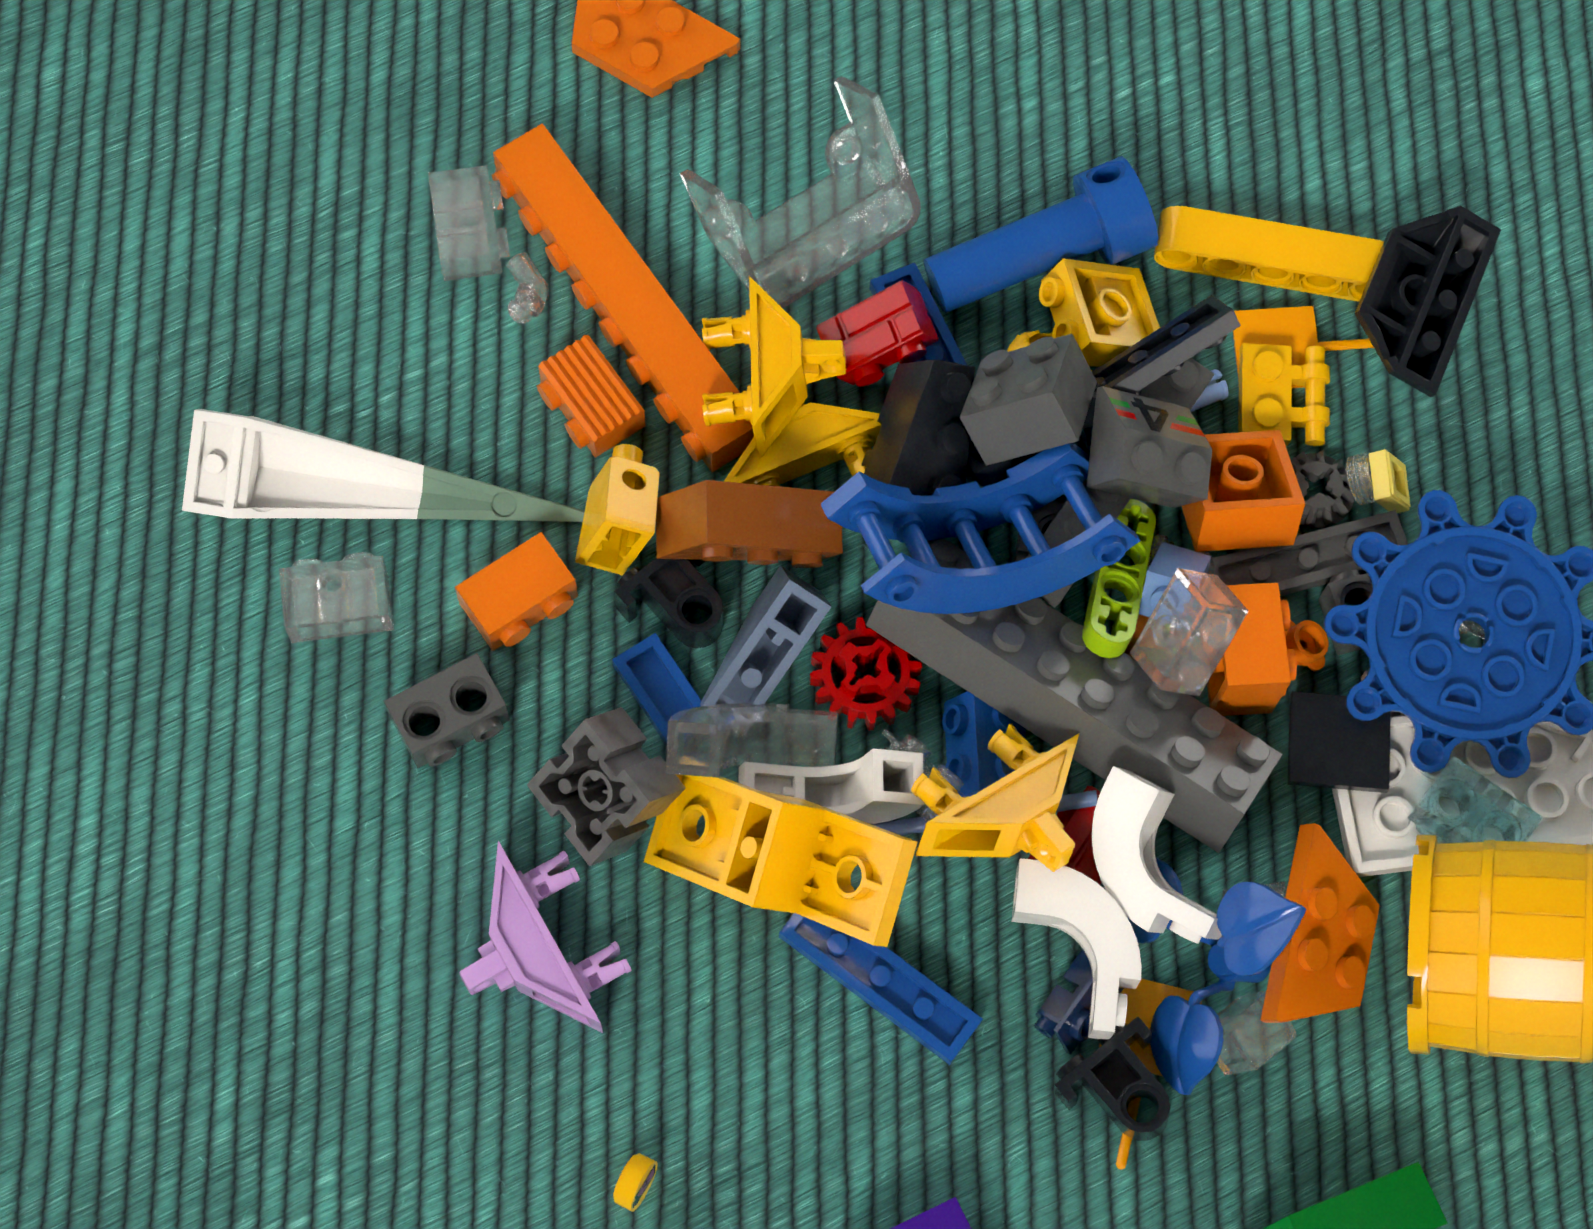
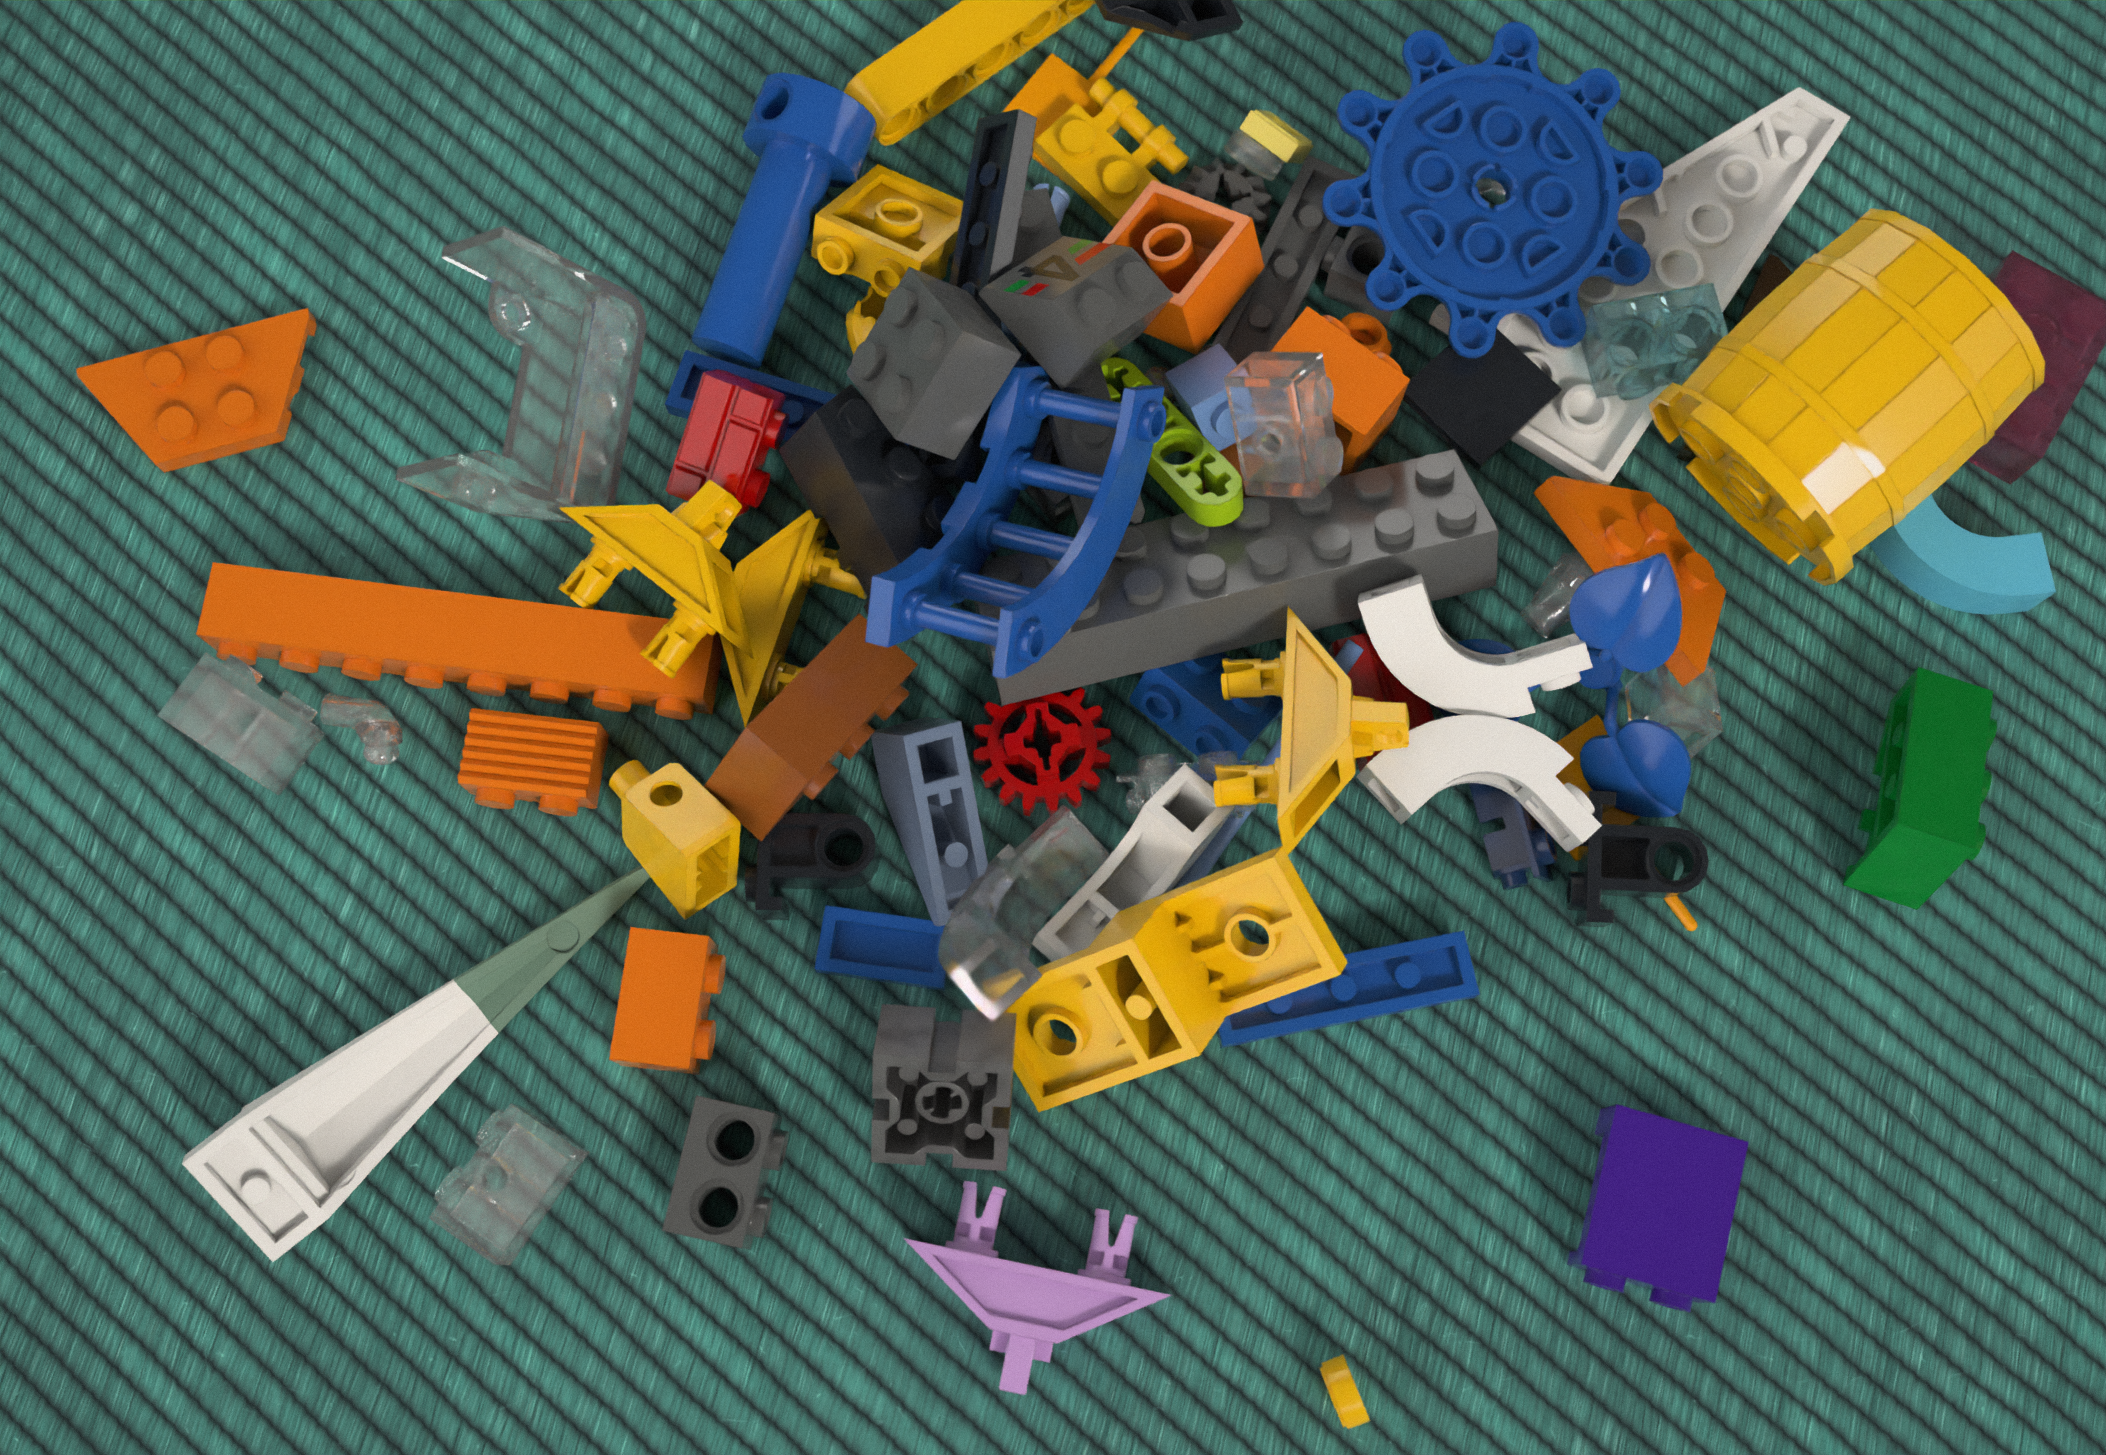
camera: 45 degrees left, 5 degrees up
(1516, 1140) = (1965, 568): none -> medium azure arch

